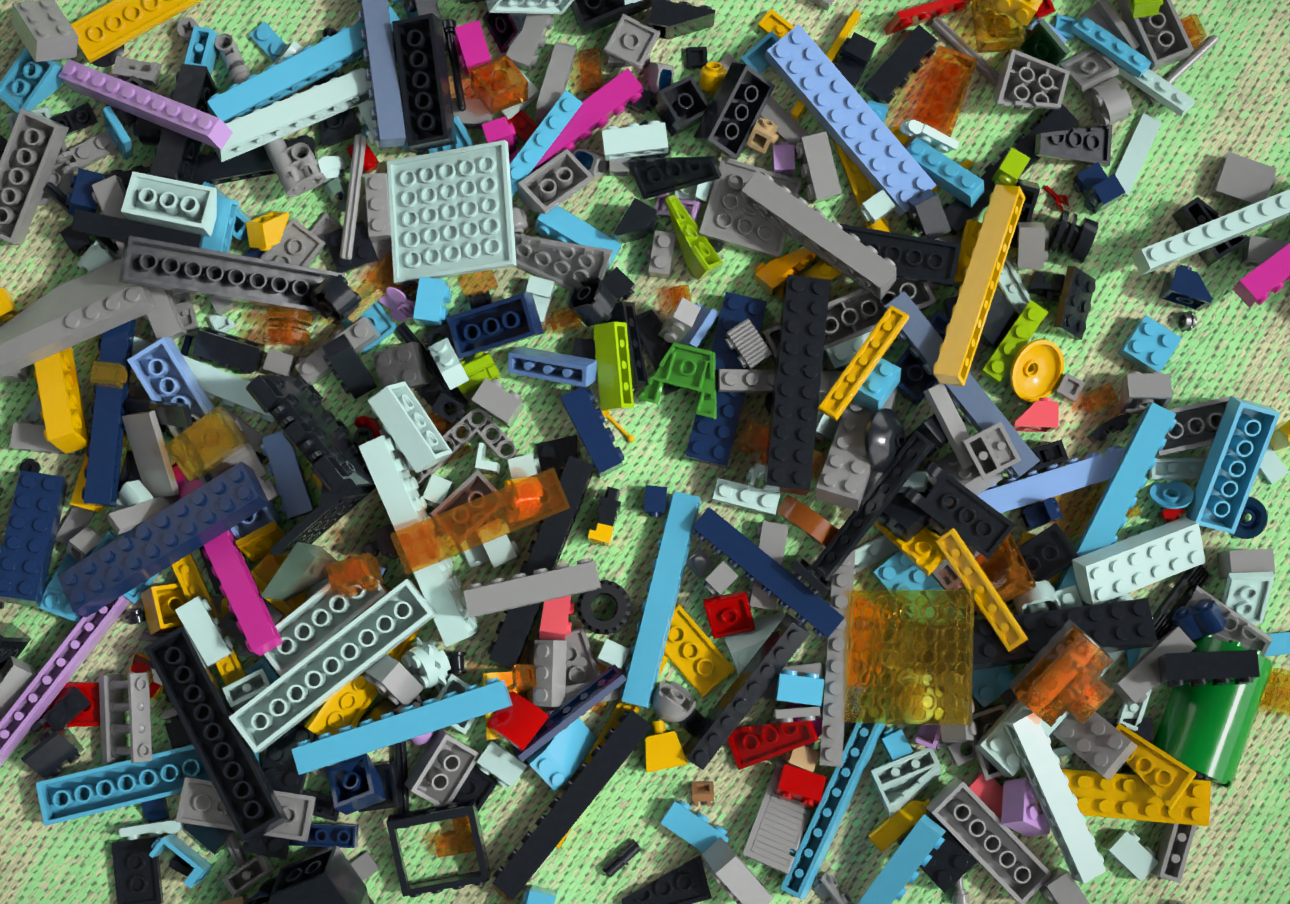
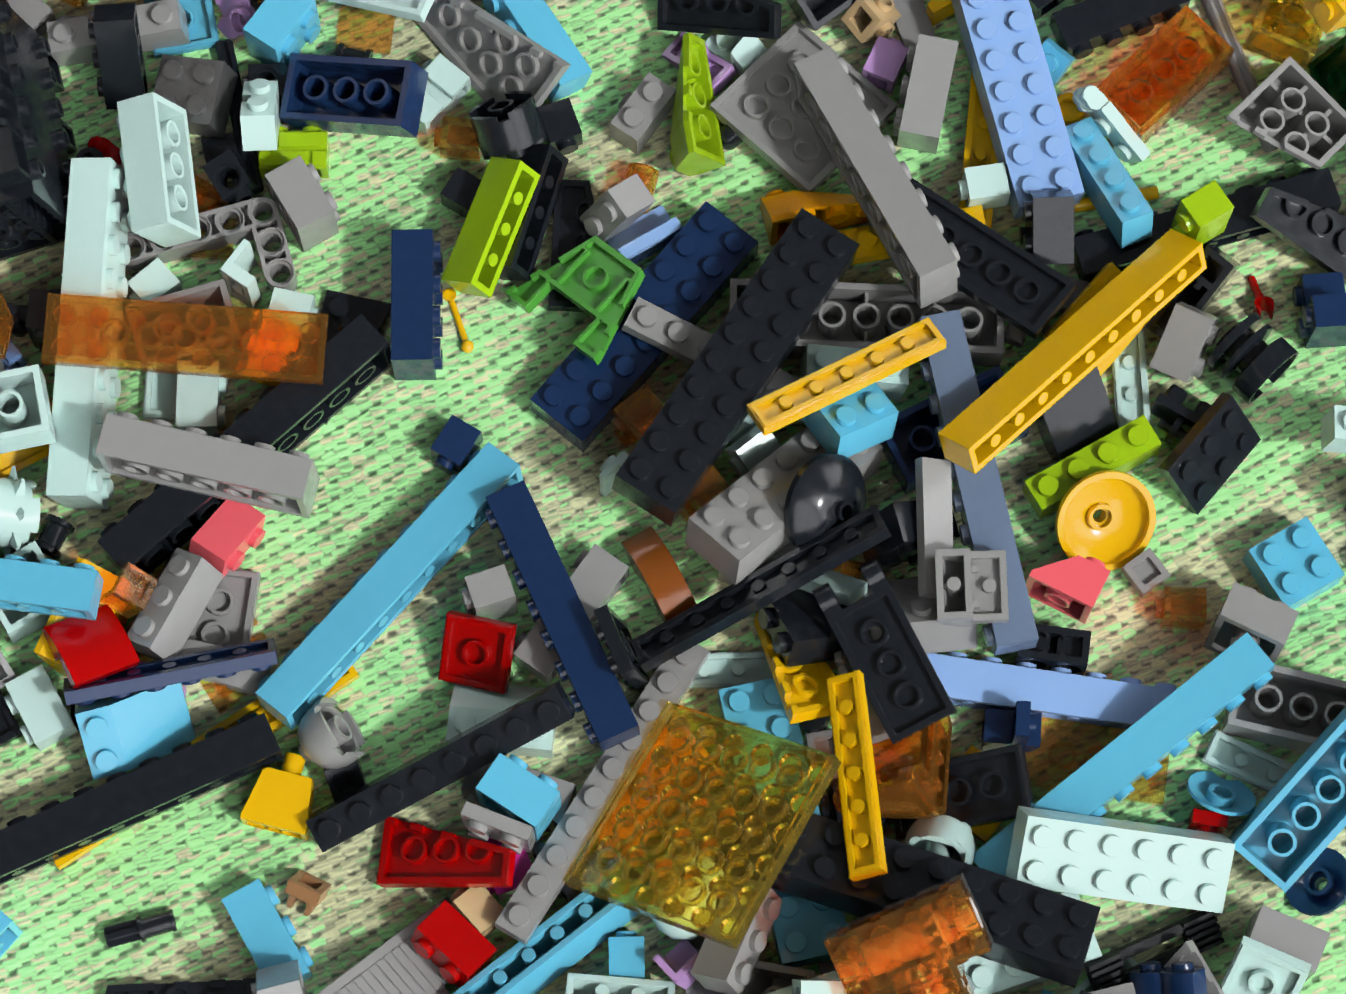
camera: 25 degrees right, 10 degrees down
(552, 366) = (404, 188): medium blue brick -> none
(604, 626) = (312, 583): black tyre -> none
(607, 517) = (372, 433): black hips -> none
(612, 654) = (282, 626): light aqua brick -> none
(636, 223) = (626, 51): black slope -> none
(695, 654) = (401, 689): yellow tile -> none
(699, 563) = (472, 561): light grey plate -> none
(746, 497) = (588, 501): light aqua brick -> none
(748, 345) = (697, 282): light grey brick -> none
(1069, 597) = (990, 858): light aqua plate -> none
(1115, 424) = (1186, 654): black slope -> none

